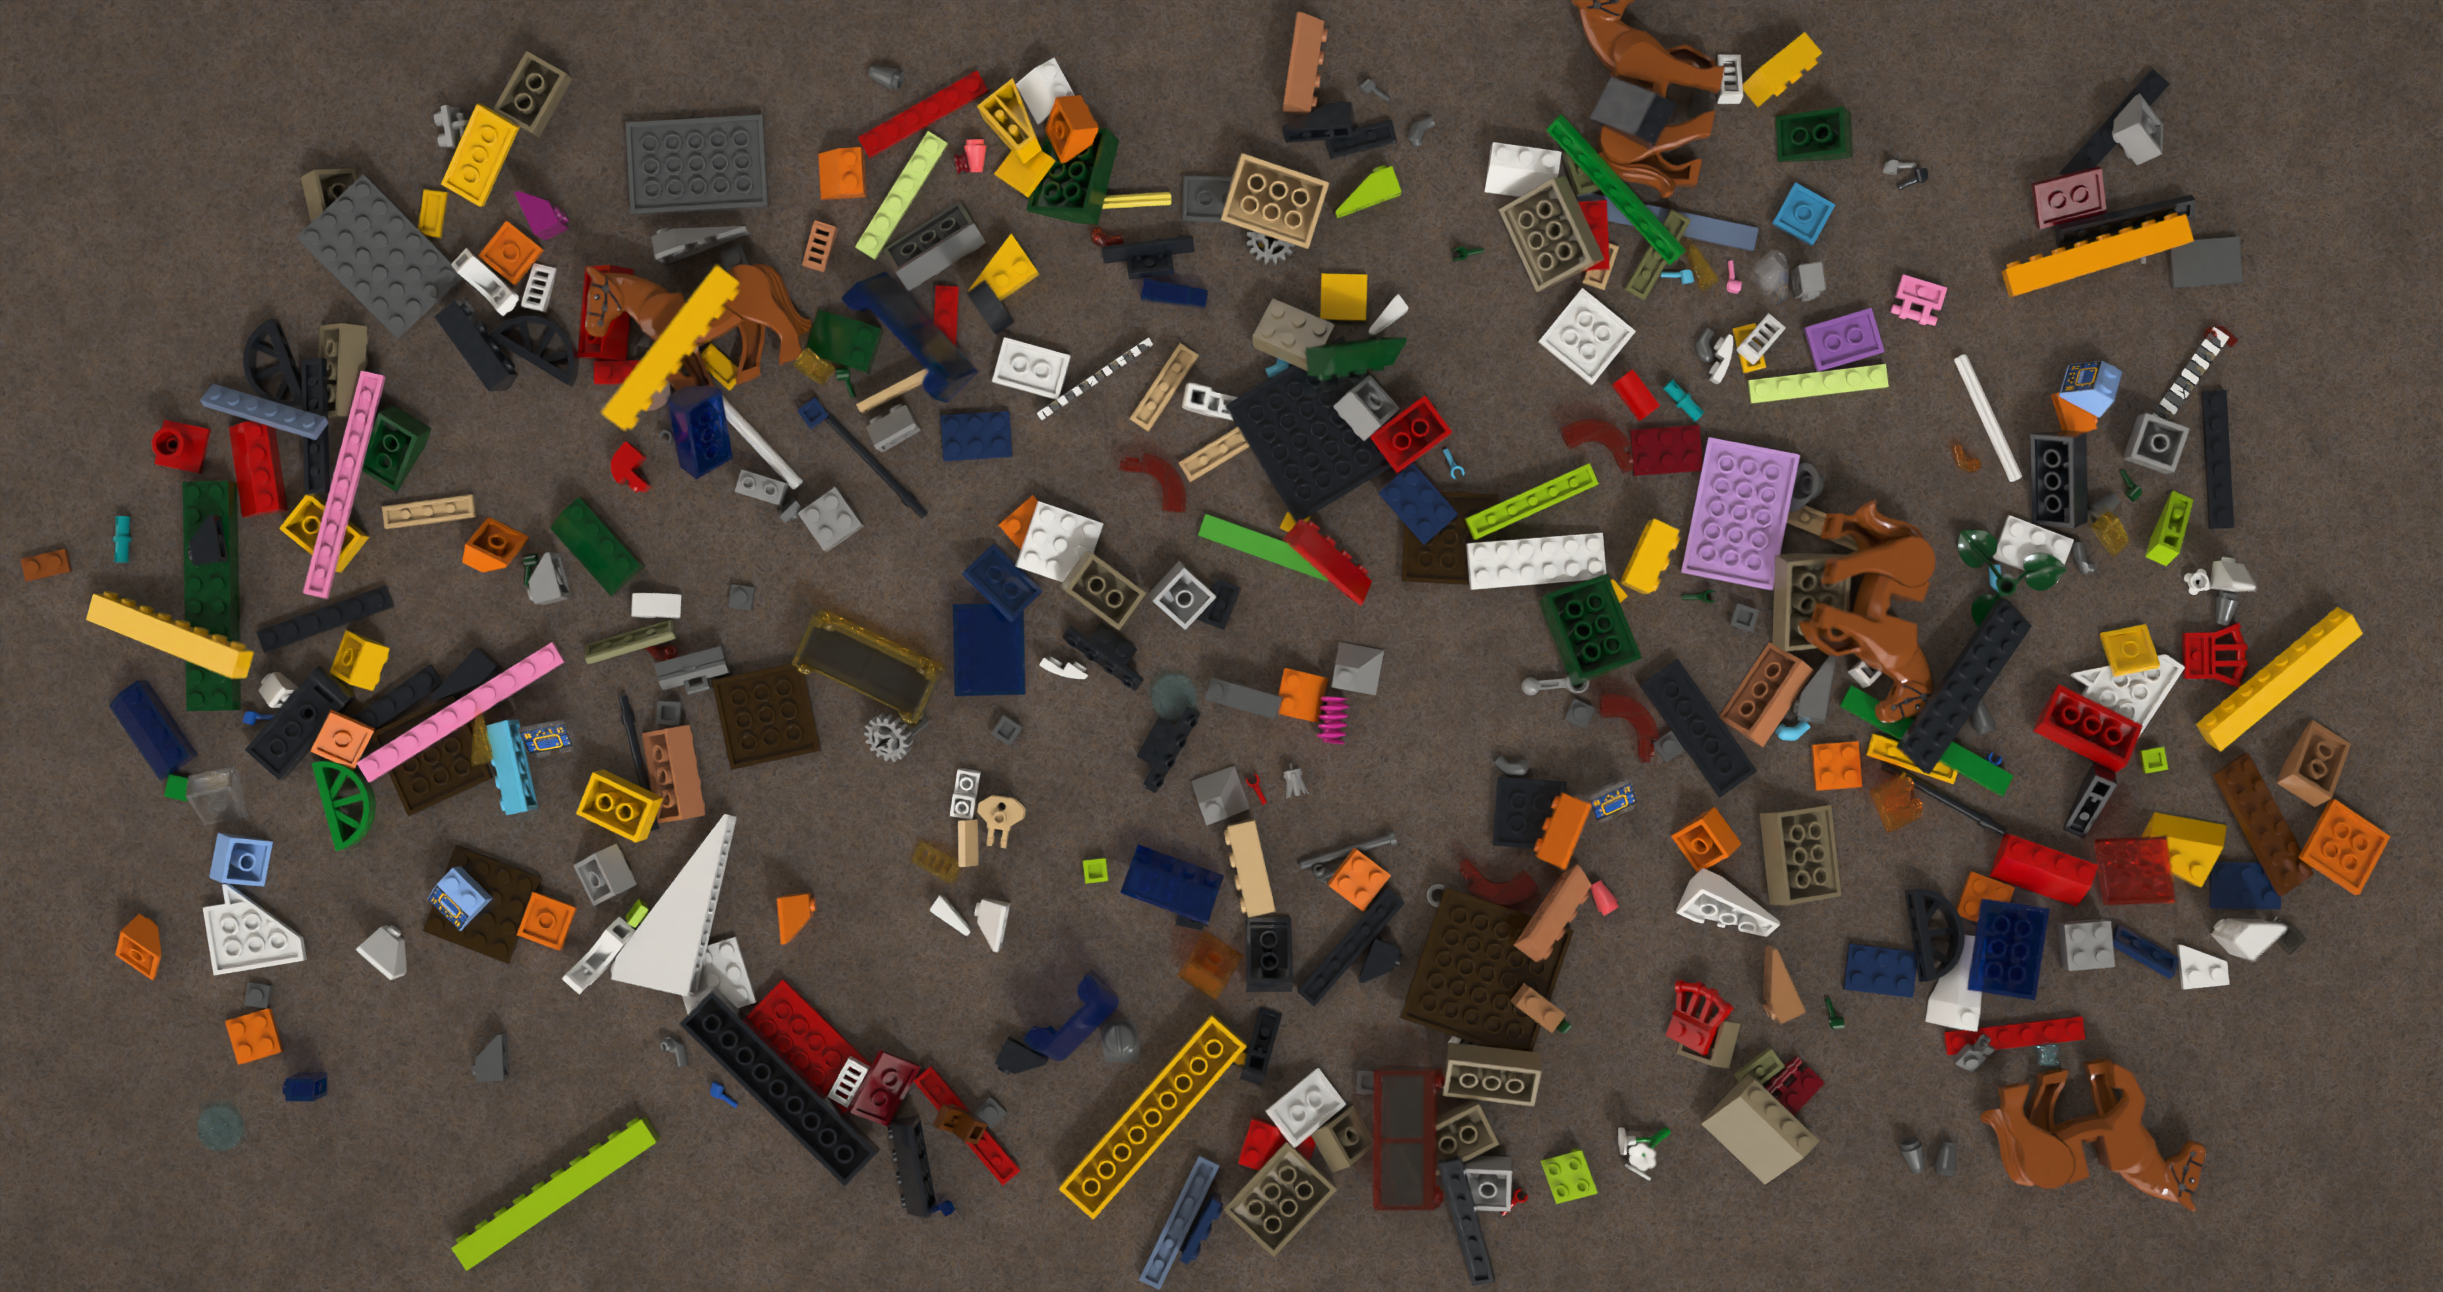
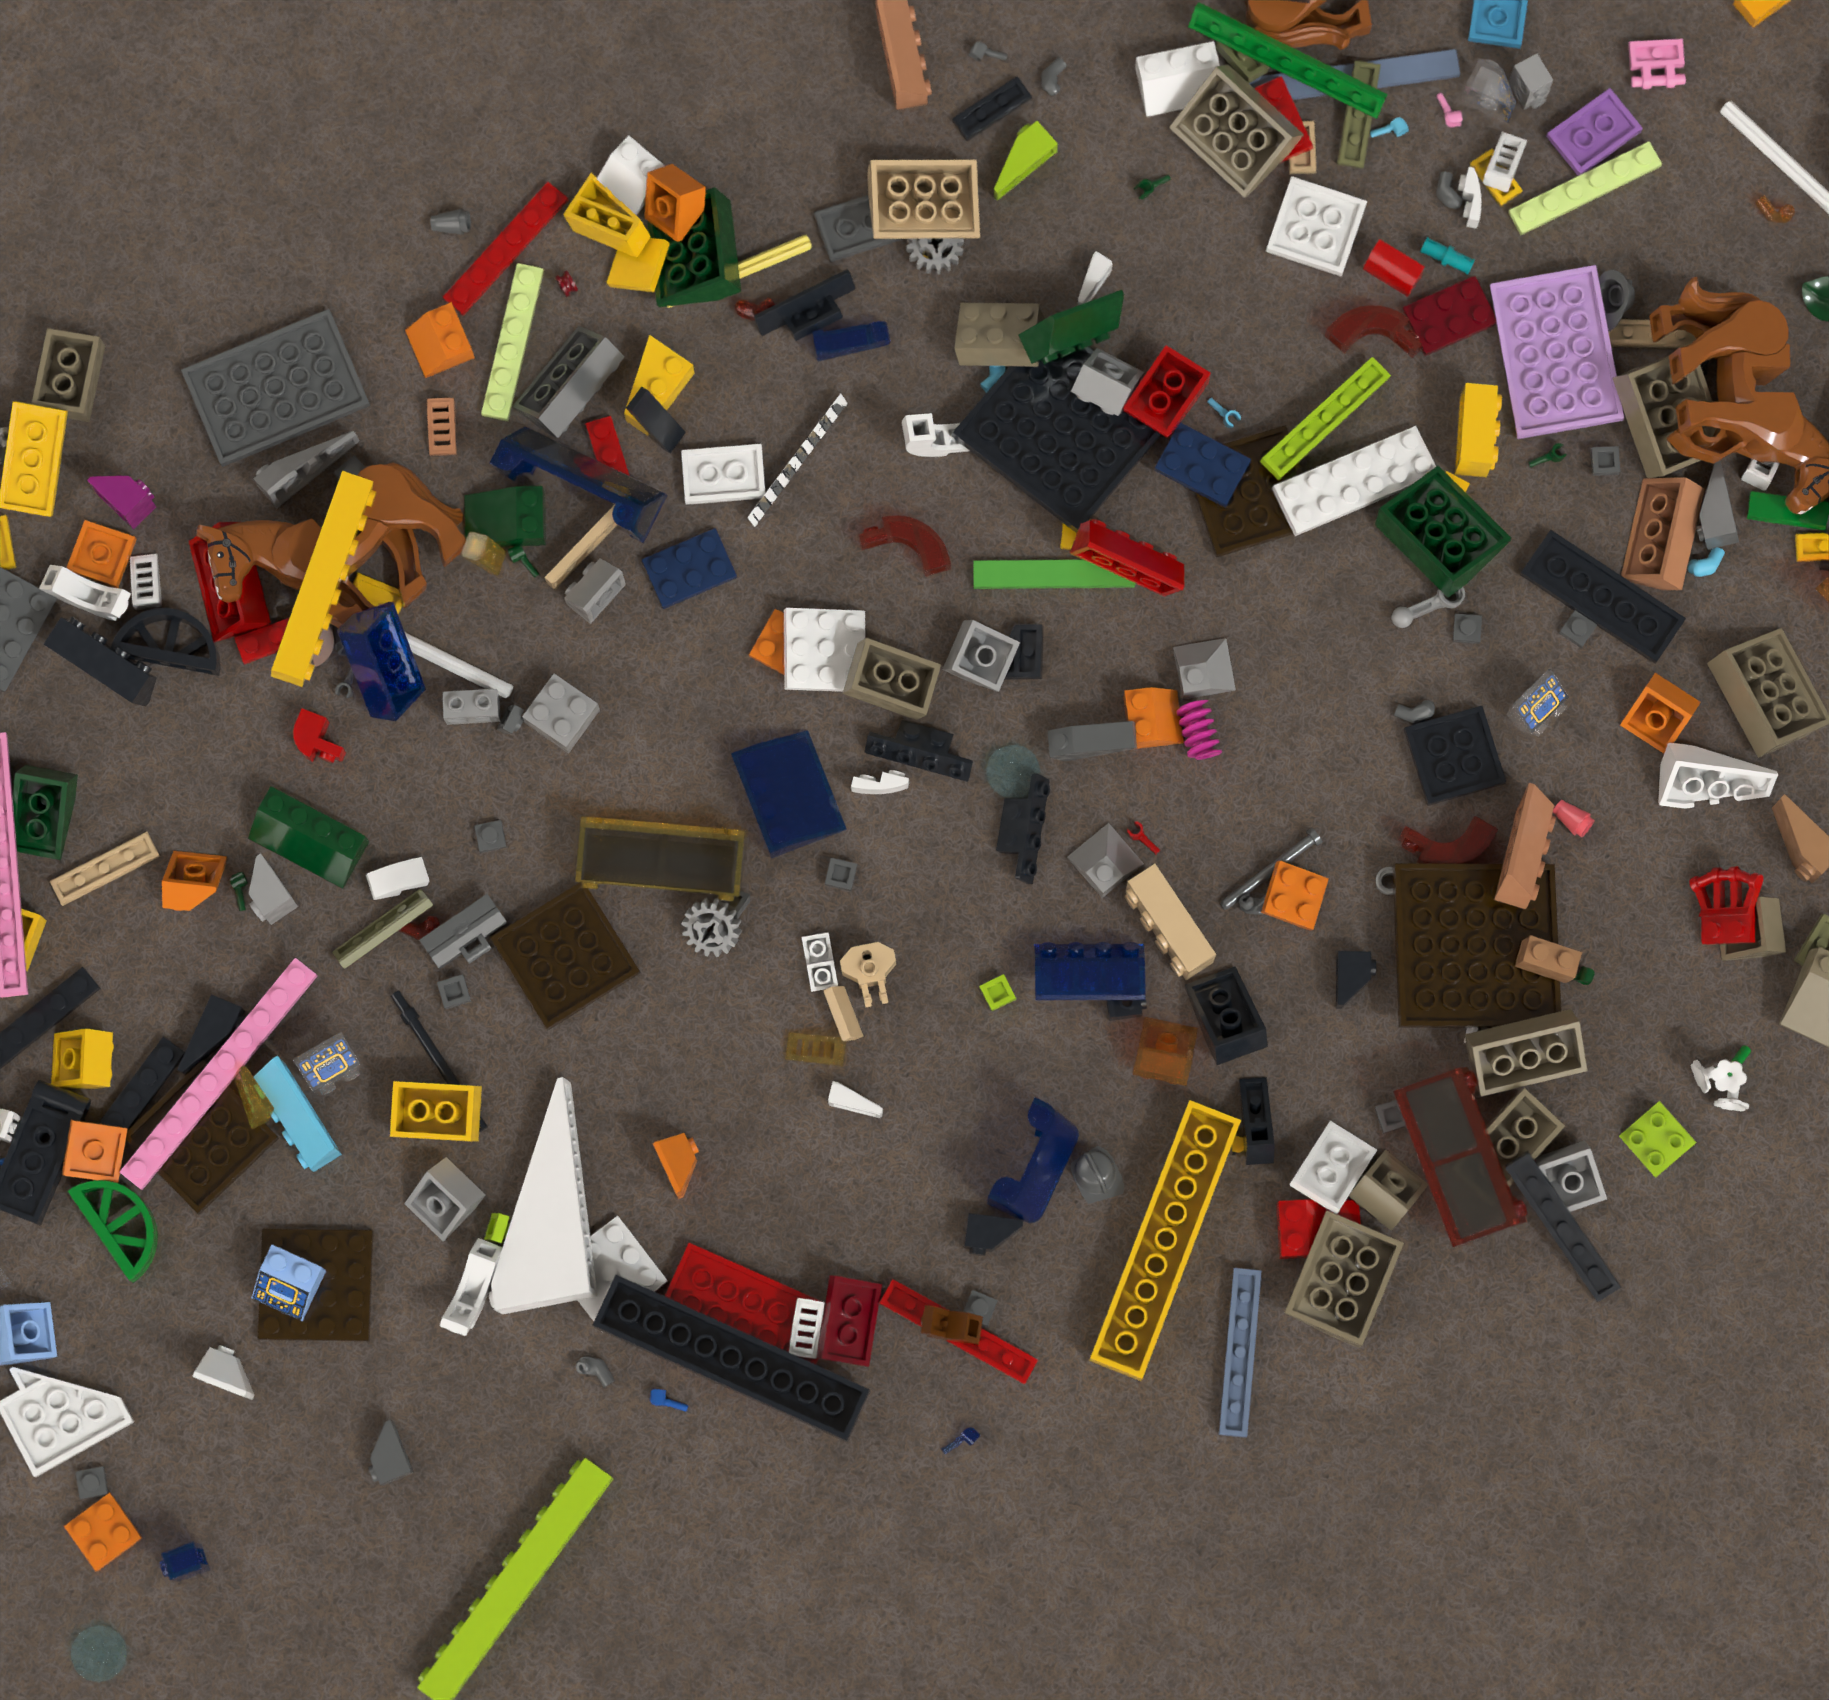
camera: 25 degrees left, 10 degrees down
(547, 921) = (396, 1275): orange plate -> none
(674, 773) = (483, 1056): nougat slope -> none
(813, 413) = (499, 607): dark blue plate -> none
(908, 499) = (638, 662): black bar -> none
(913, 1166) = (913, 1395): black slope -> none
(975, 154) = (578, 267): coral cone -> none
(992, 920) = (902, 1087): white slope -> none
(1002, 582) = (776, 713): dark blue plate -> none
(1164, 387) = (876, 443): tan tile -> none
(1201, 1229) = (1269, 1345): dark blue plate -> none
(1213, 454) = (959, 494): tan tile -> none
(1294, 781) = (1181, 808): light grey piece -> none
(1324, 123) = (945, 104): black slope -> none
(1343, 297) = (1037, 277): yellow tile -> none
(1350, 946) = (1314, 973): black plate -> none
(1515, 1200) = (1608, 1189): red hand -> none
(1562, 830) = (1498, 754): orange slope -> none
(1629, 709) = (1531, 606): clear red arch -> none
(1703, 272) = (1414, 114): clear yellow slope -> none
(1836, 765) = (1770, 583): orange plate -> none

